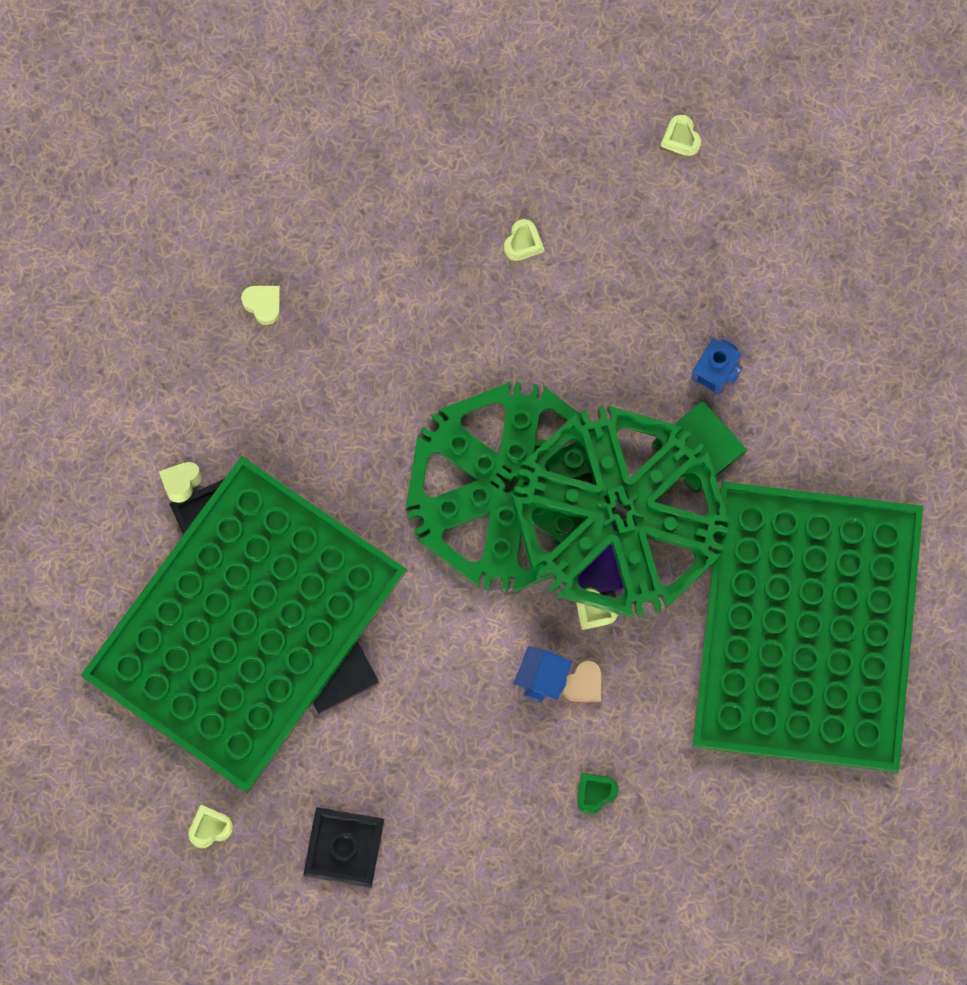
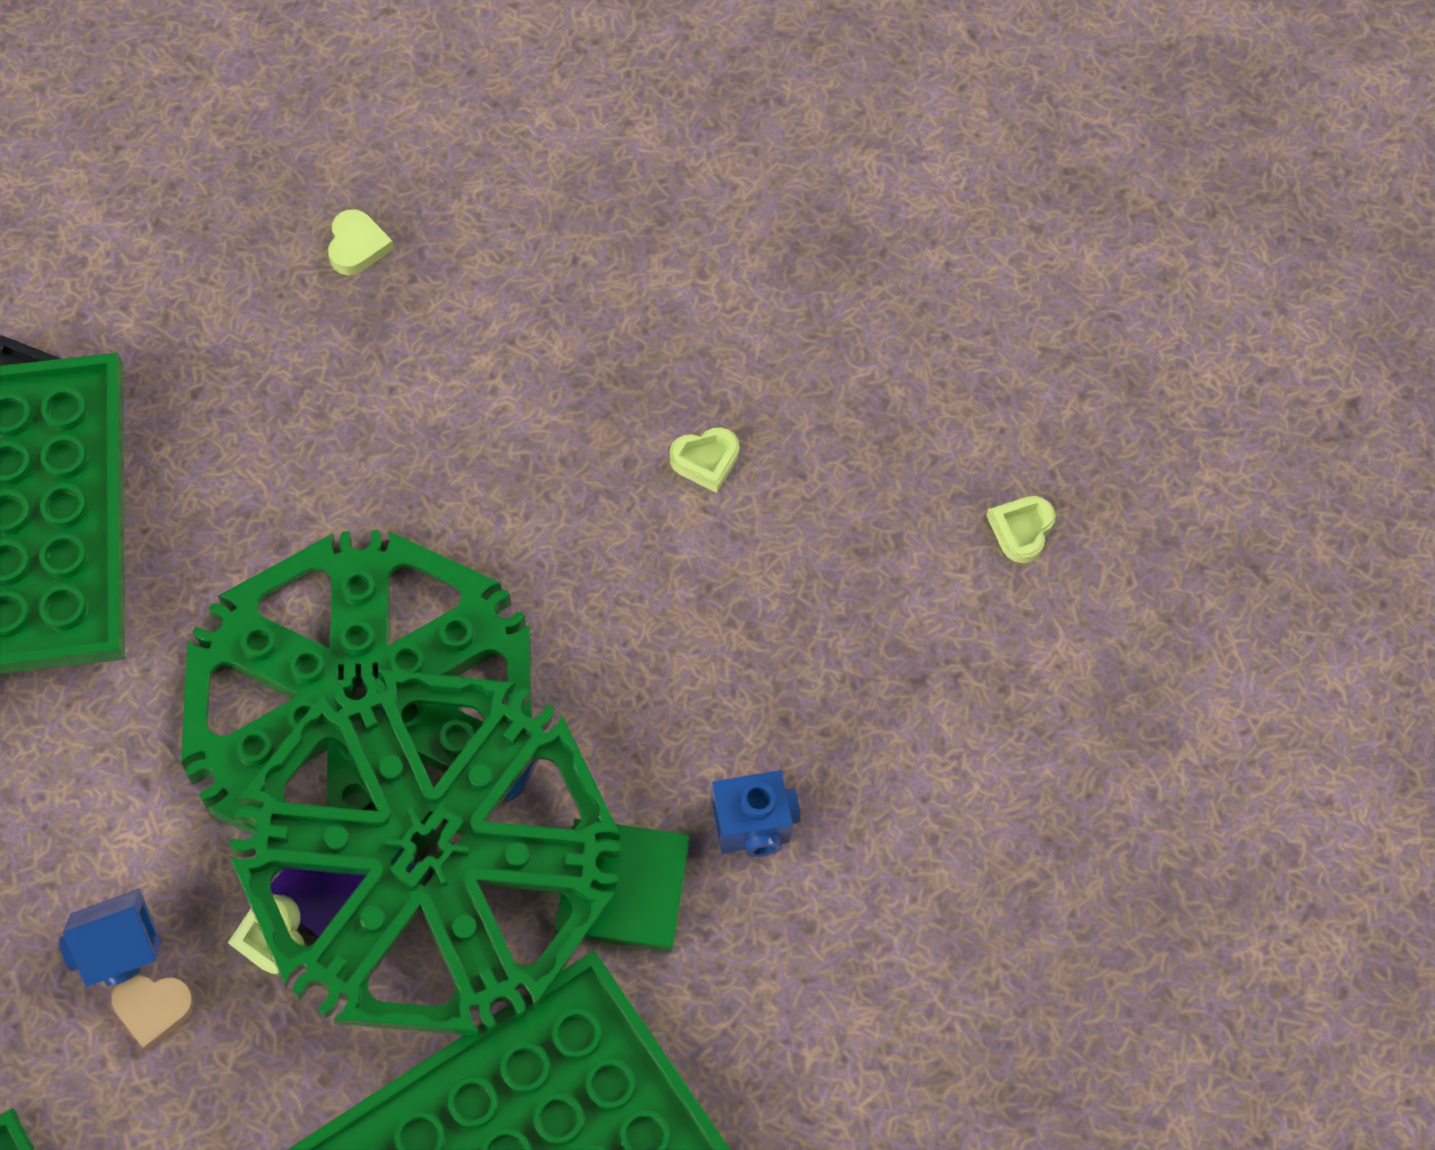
camera: 45 degrees right, 10 degrees down
(180, 480) = (39, 322): yellowish green tile -> none

